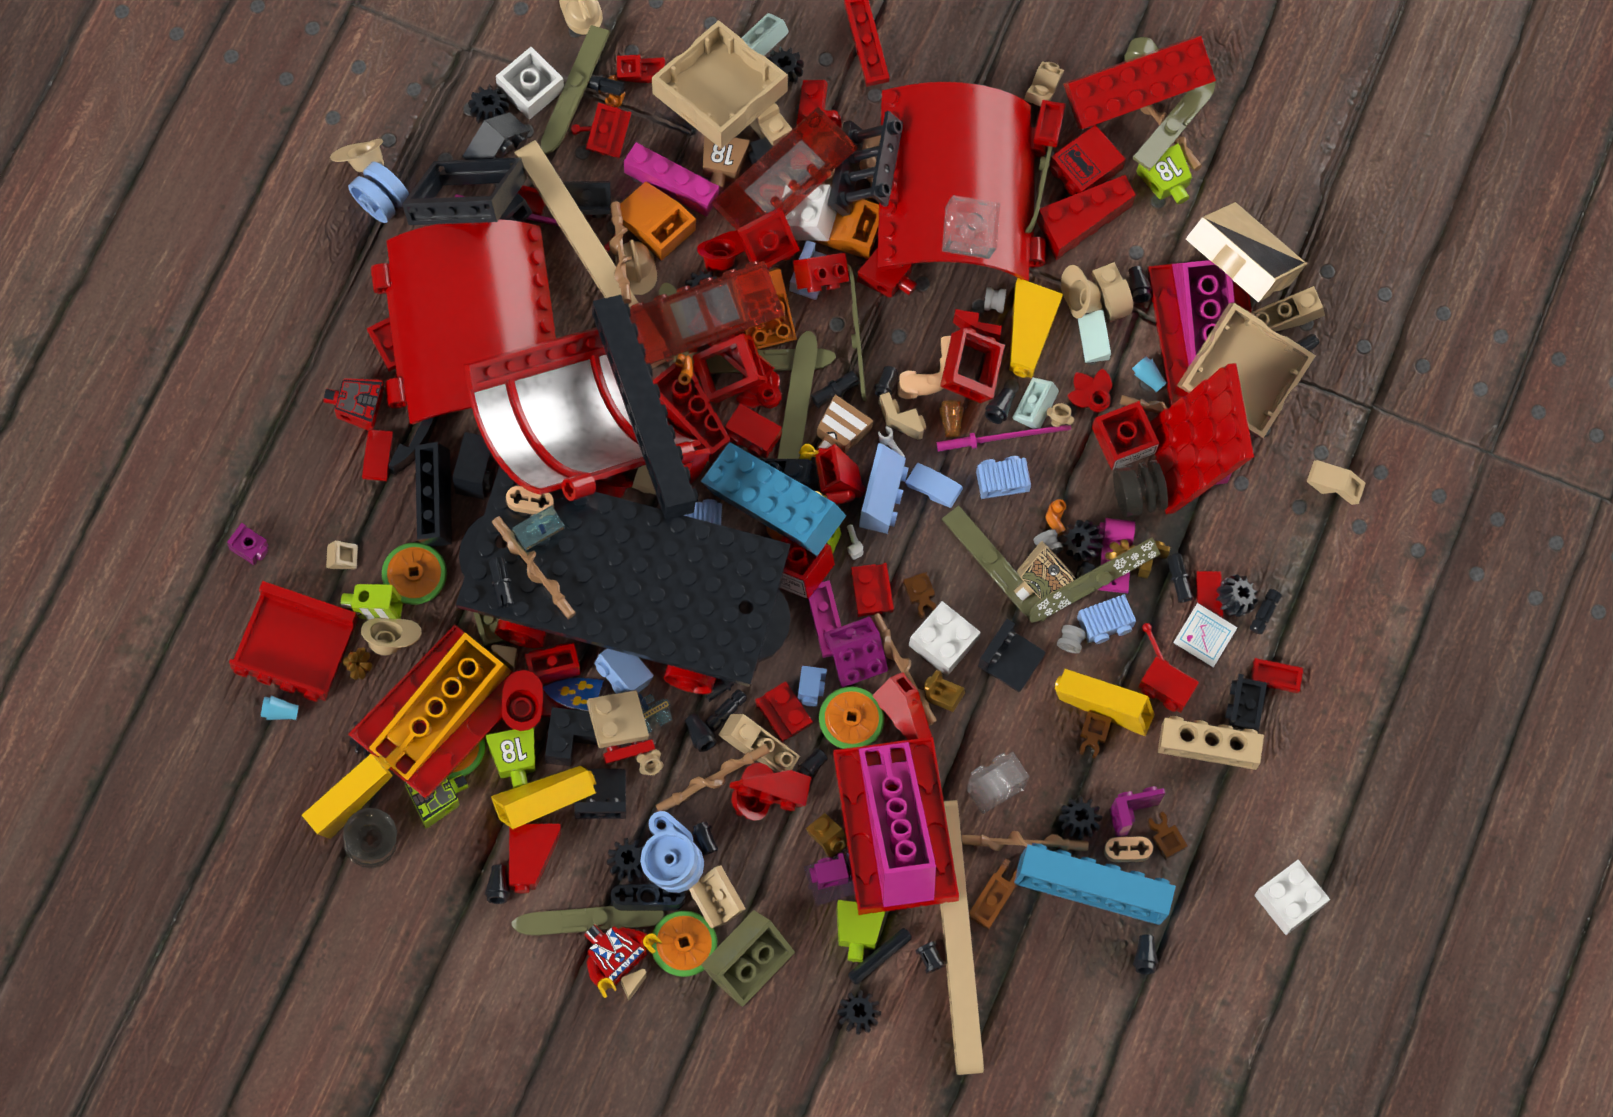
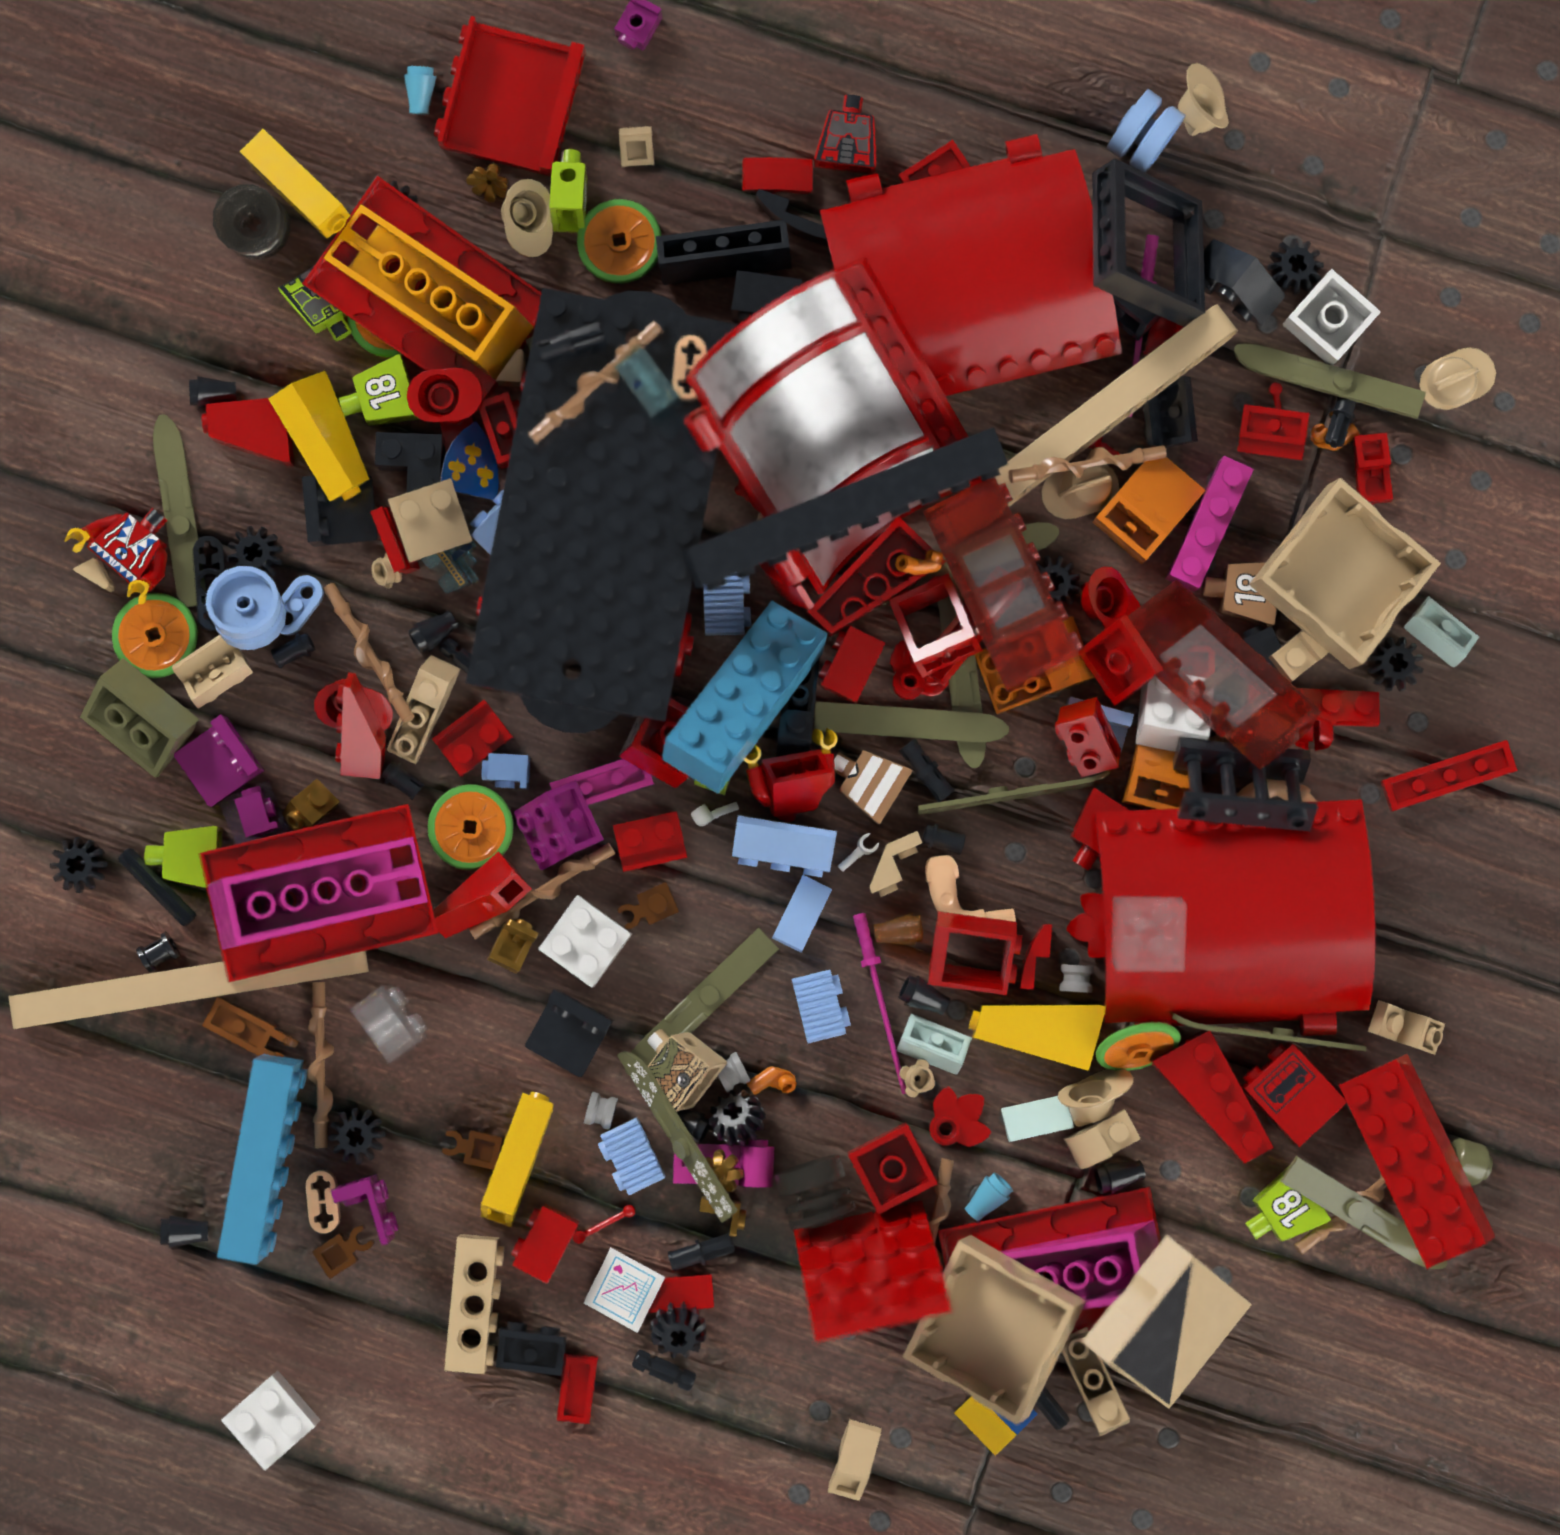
camera: 90 degrees right, 15 degrees up
(786, 899) = (218, 761): none -> magenta bracket
(956, 285) = (1090, 924): none -> red plate
(1046, 259) = (1137, 1045): none -> orange wheel
(1049, 123) = (1341, 1037): red tile -> none
(1310, 389) = (988, 1425): none -> yellow sticker

